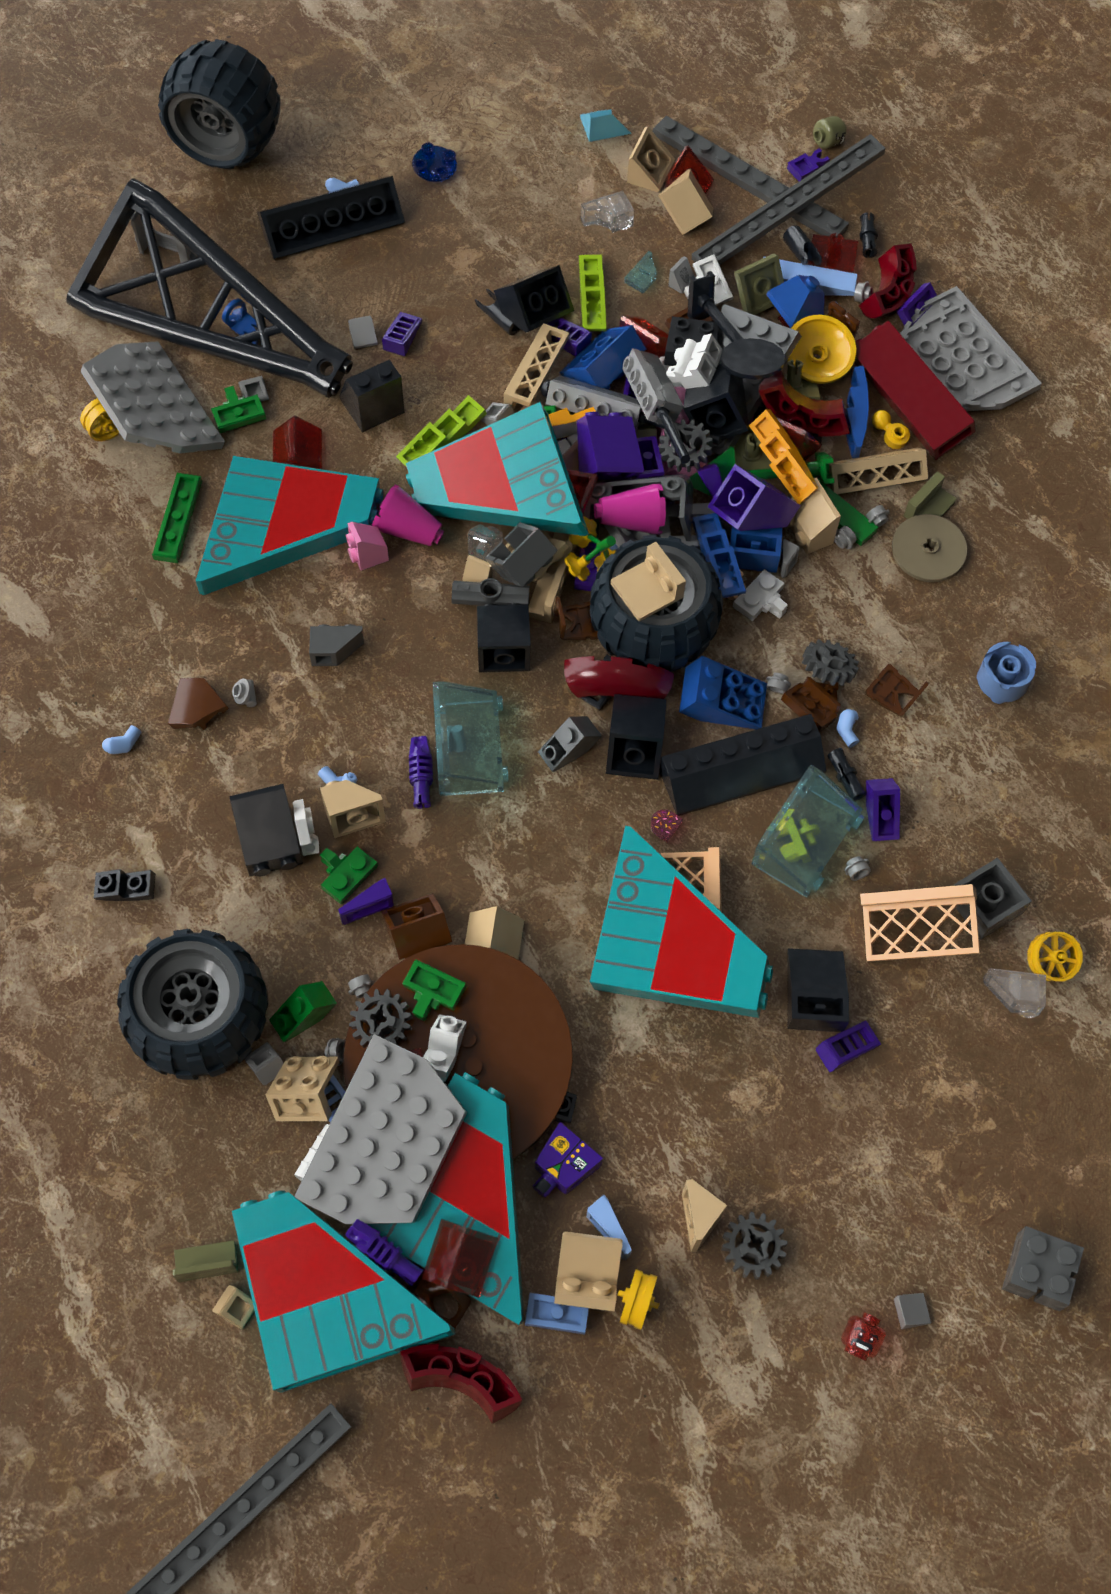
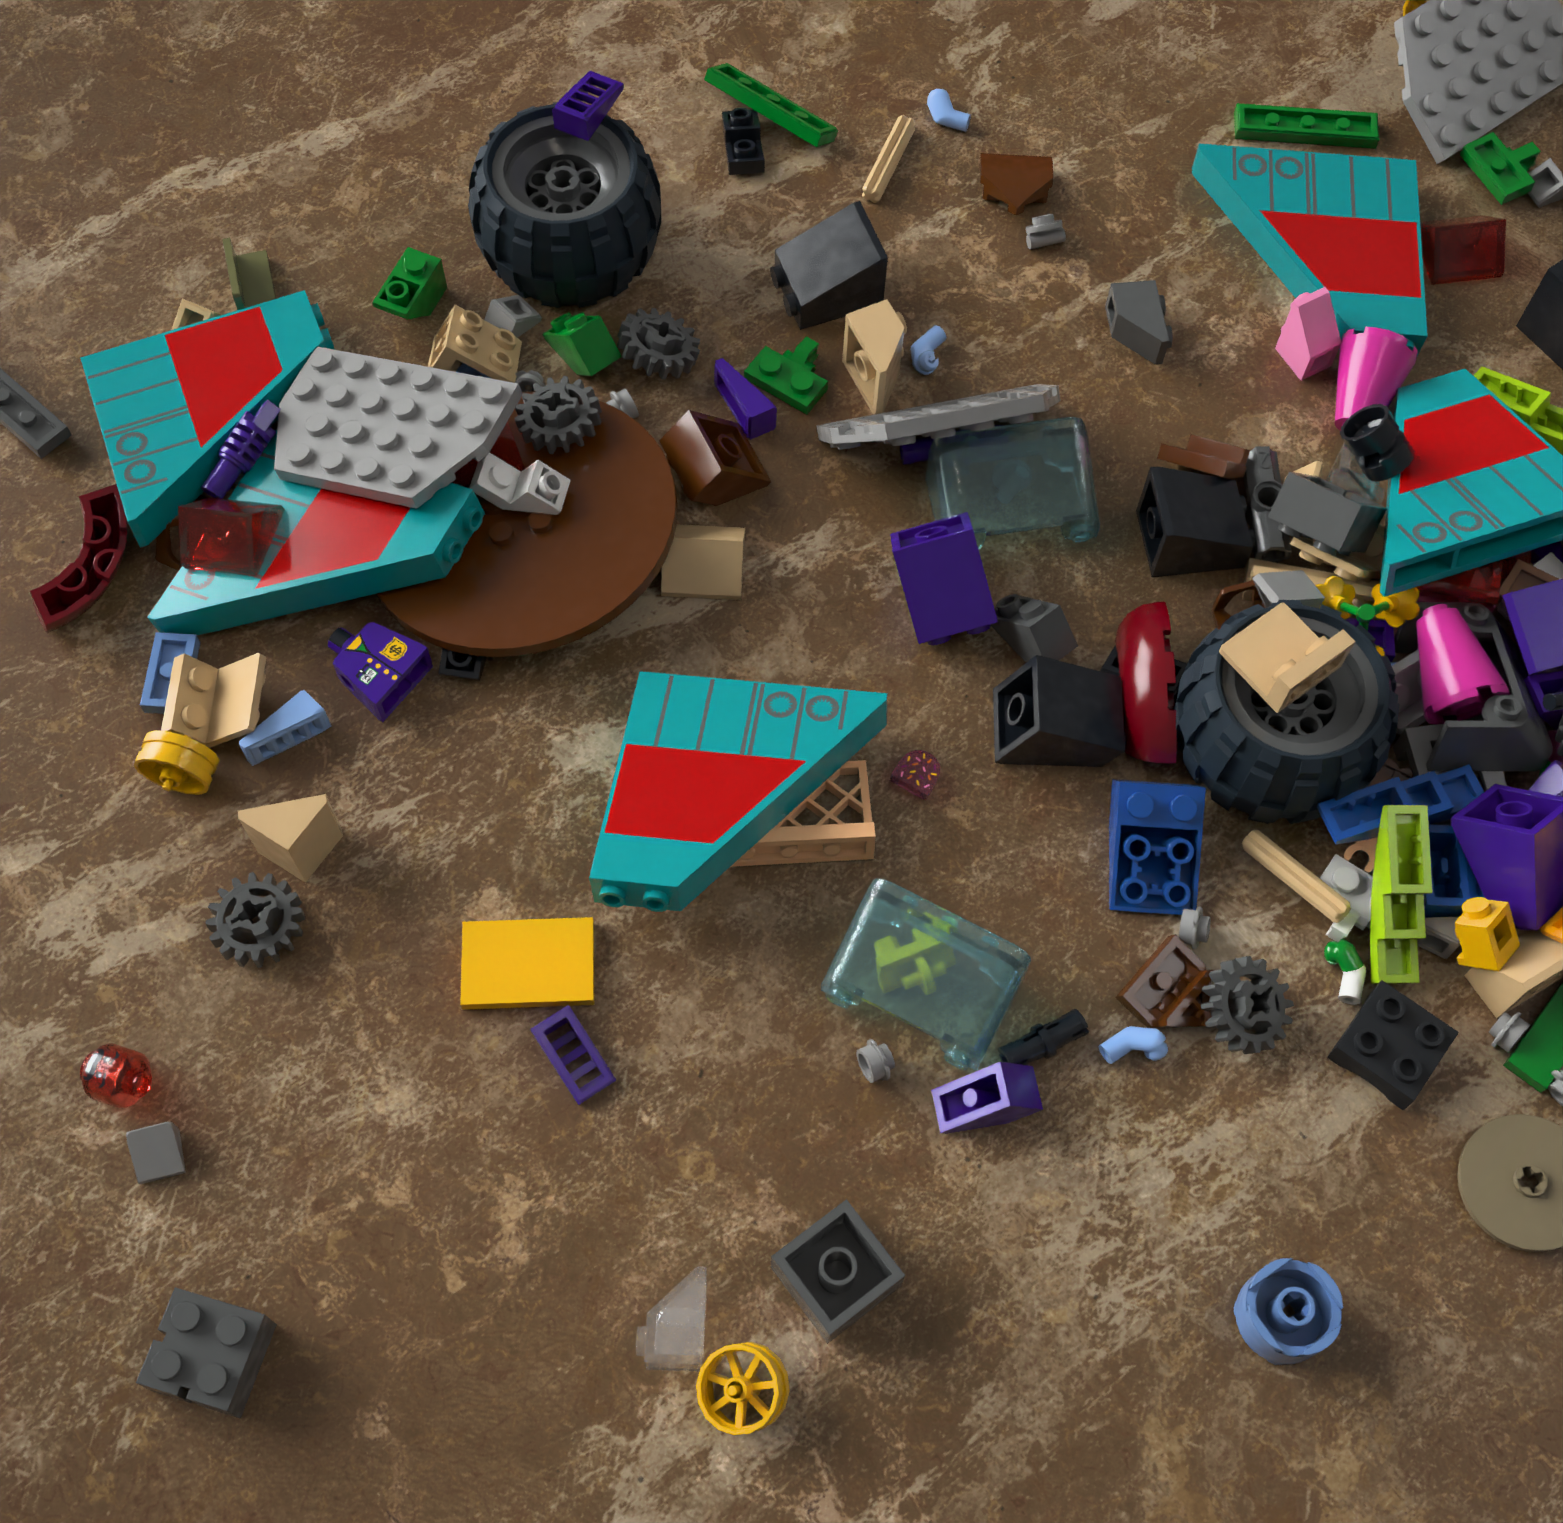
camera: 85 degrees right, 0 degrees up
(94, 861) = (771, 104): none -> green tile
(153, 975) = (584, 124): none -> dark purple slope
(160, 786) = (888, 158): none -> tan axle
(237, 1131) = (413, 286): none -> green slope
(305, 828) = (832, 303): white hinge -> none
(313, 955) = (658, 343): none -> dark grey gear
(415, 768) = (941, 418): none -> light grey plate
(432, 989) = (604, 467): green hinge -> none
(453, 619) = (1208, 456): none -> reddish brown slope
(479, 515) = (1377, 442): none -> black wheel
(534, 785) = (943, 579): none -> dark purple slope
(576, 587) = (1287, 586): none -> light grey slope
(742, 764) = (1035, 880): black slope -> none
(749, 623) = (1296, 876): none -> tan axle
(769, 568) = (1398, 893): none -> lime slope
(787, 1071) = (527, 963): none -> yellow tile
(800, 531) = (1486, 934): none -> yellow brick
(807, 607) = (1353, 969): none -> arm
(817, 990) = (657, 996): black slope -> none
(852, 595) = (1393, 1044): none -> black brick
(888, 687) = (1226, 1110): reddish brown piece -> none
(924, 899) = (814, 1154): light nougat fence -> none

